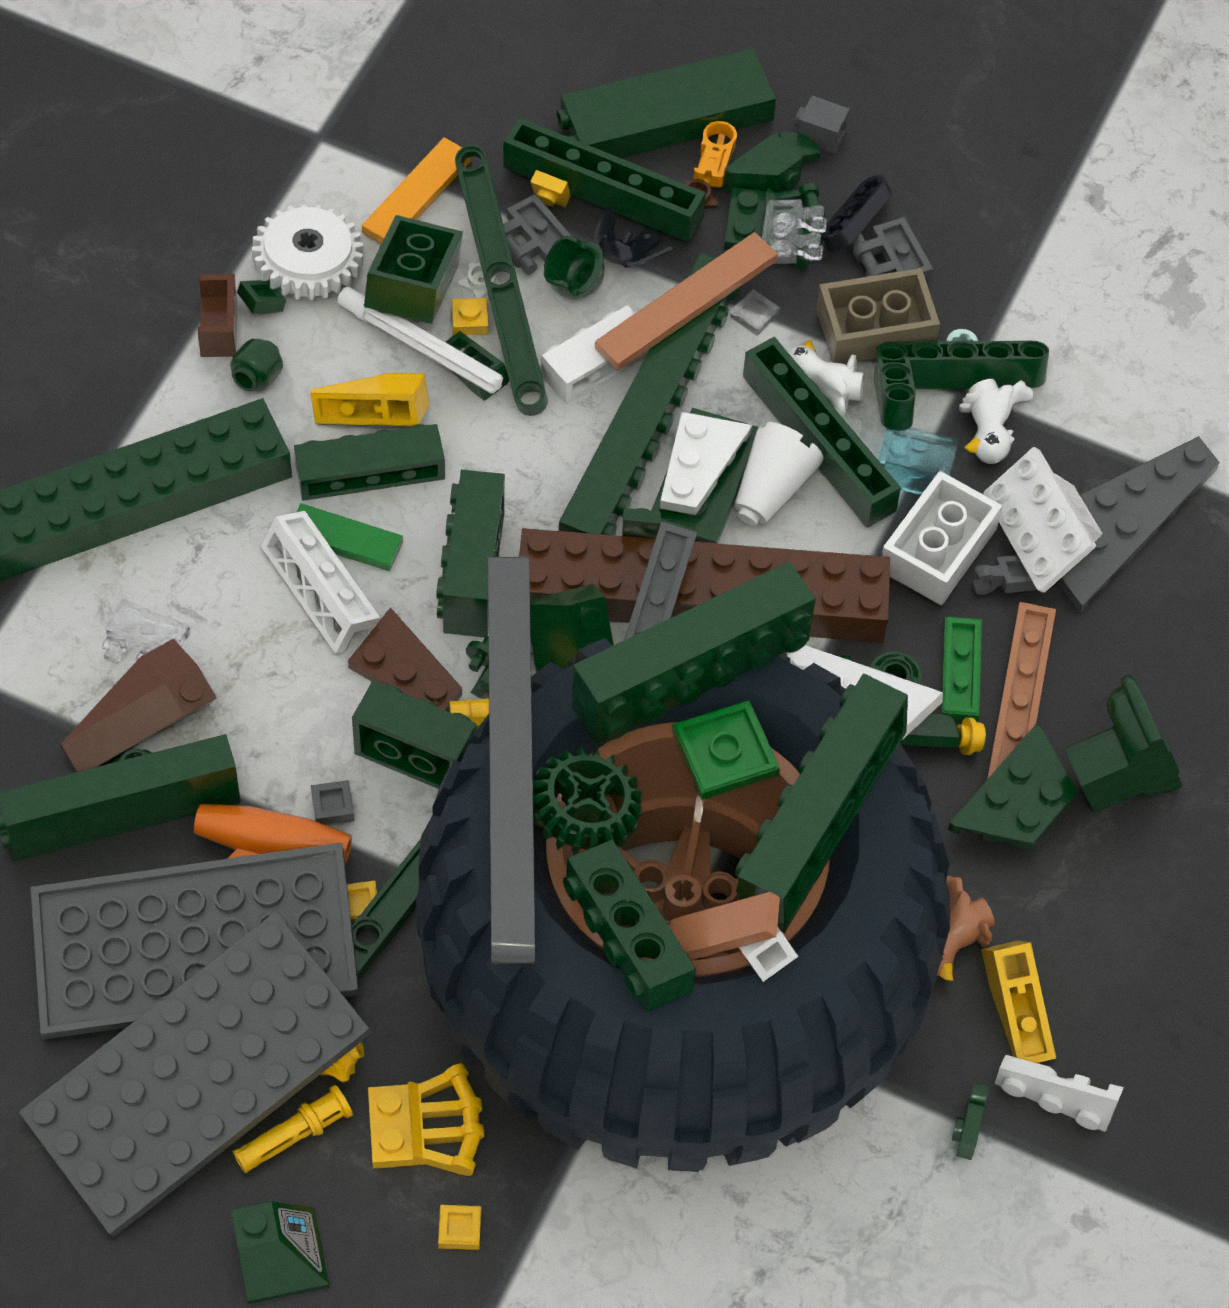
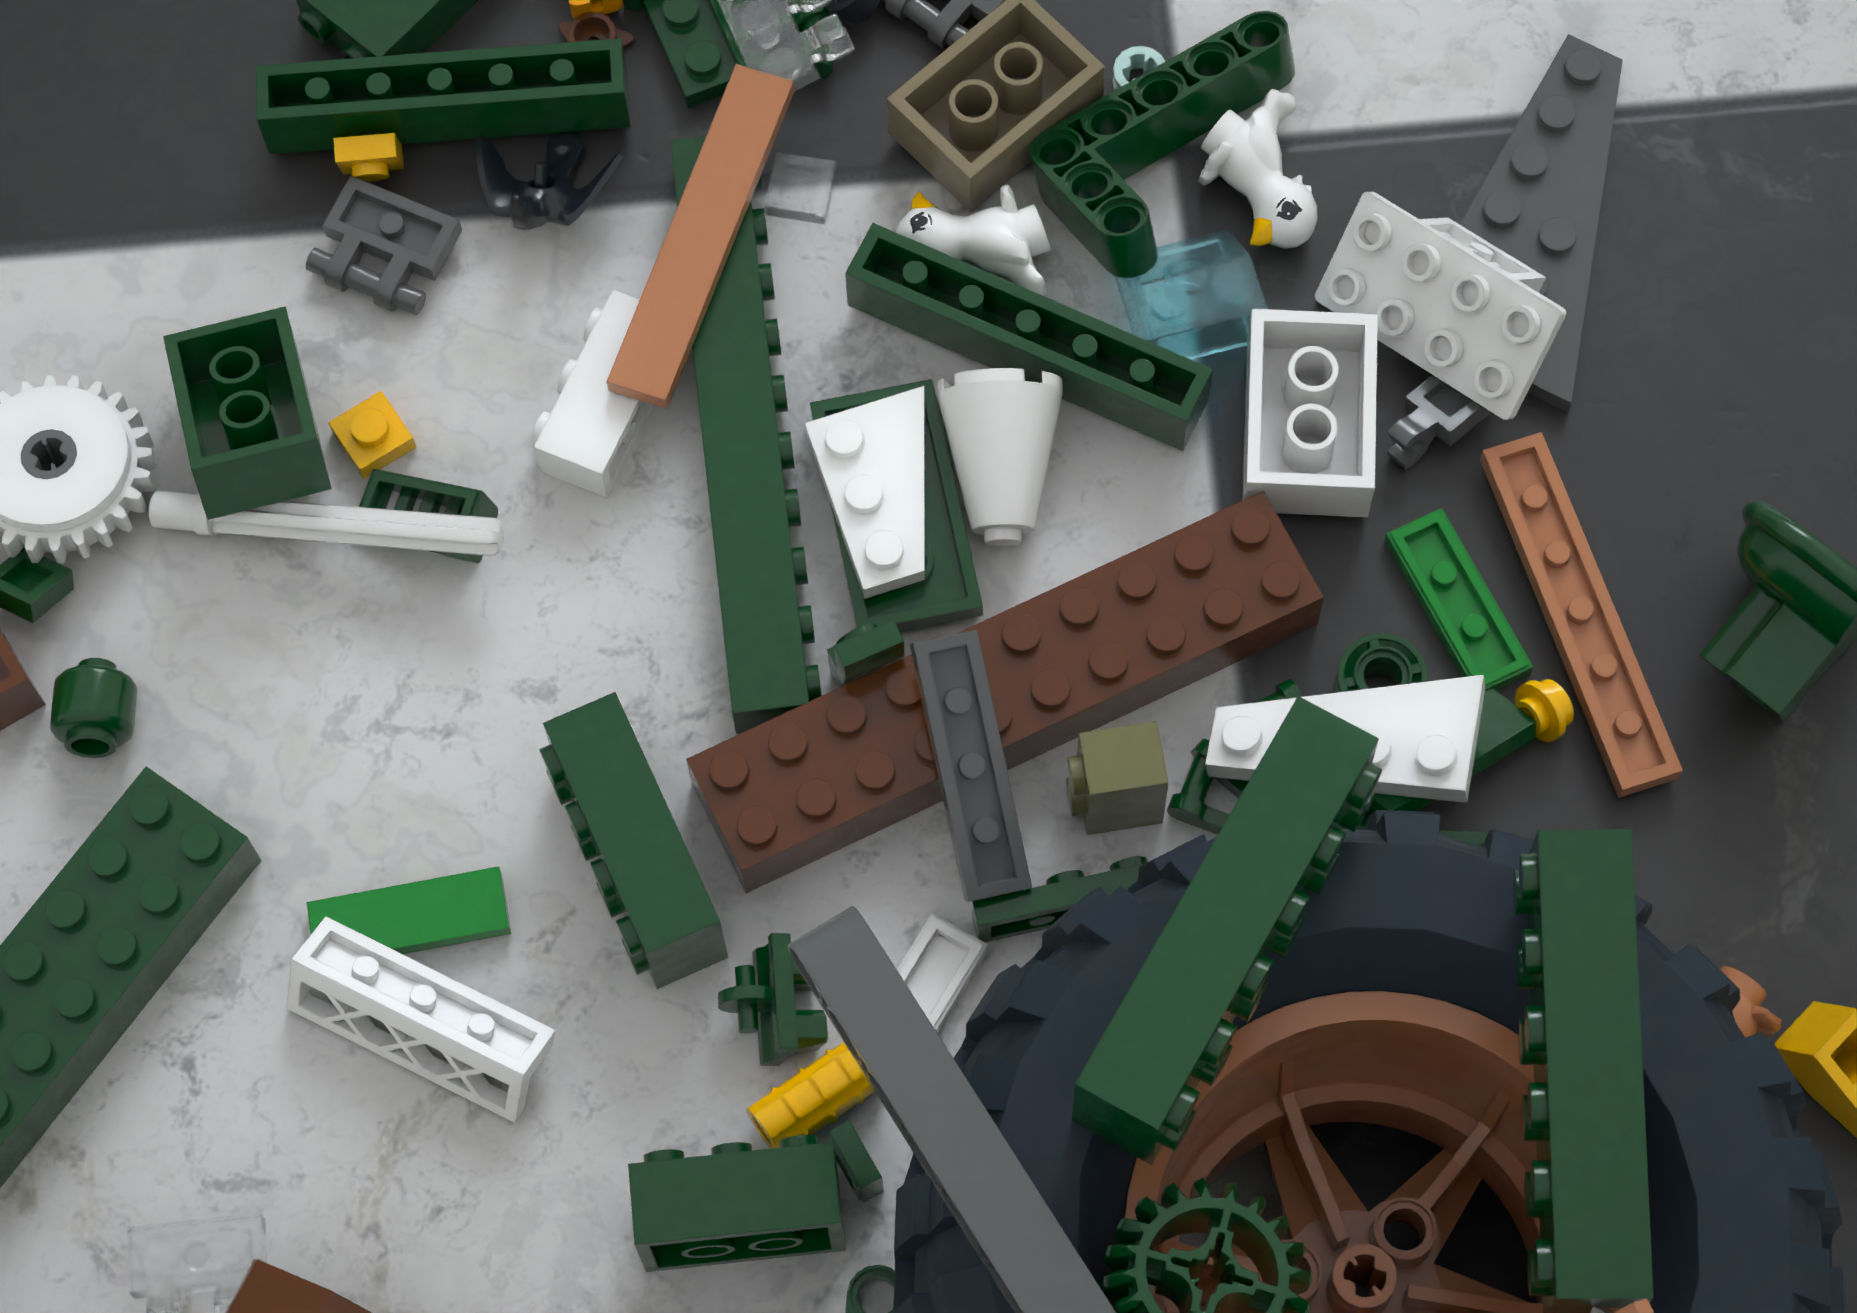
camera: 25 degrees left, 10 degrees up
(369, 461) = (371, 771): dark green brick -> none
(374, 400) = (316, 666): yellow slope -> none
(399, 658) = (638, 1084): reddish brown wing -> none
(416, 190) = (160, 267): light orange tile -> none
(472, 282) = (348, 346): white plate -> none
(505, 298) = (413, 376): dark green beam -> none
(567, 623) = (877, 866): dark green slope -> none
(574, 267) = (491, 269): dark green helmet -> none
(725, 749) = (1352, 1051): green tile -> none
(1020, 796) = (1681, 763): dark green wing -> none

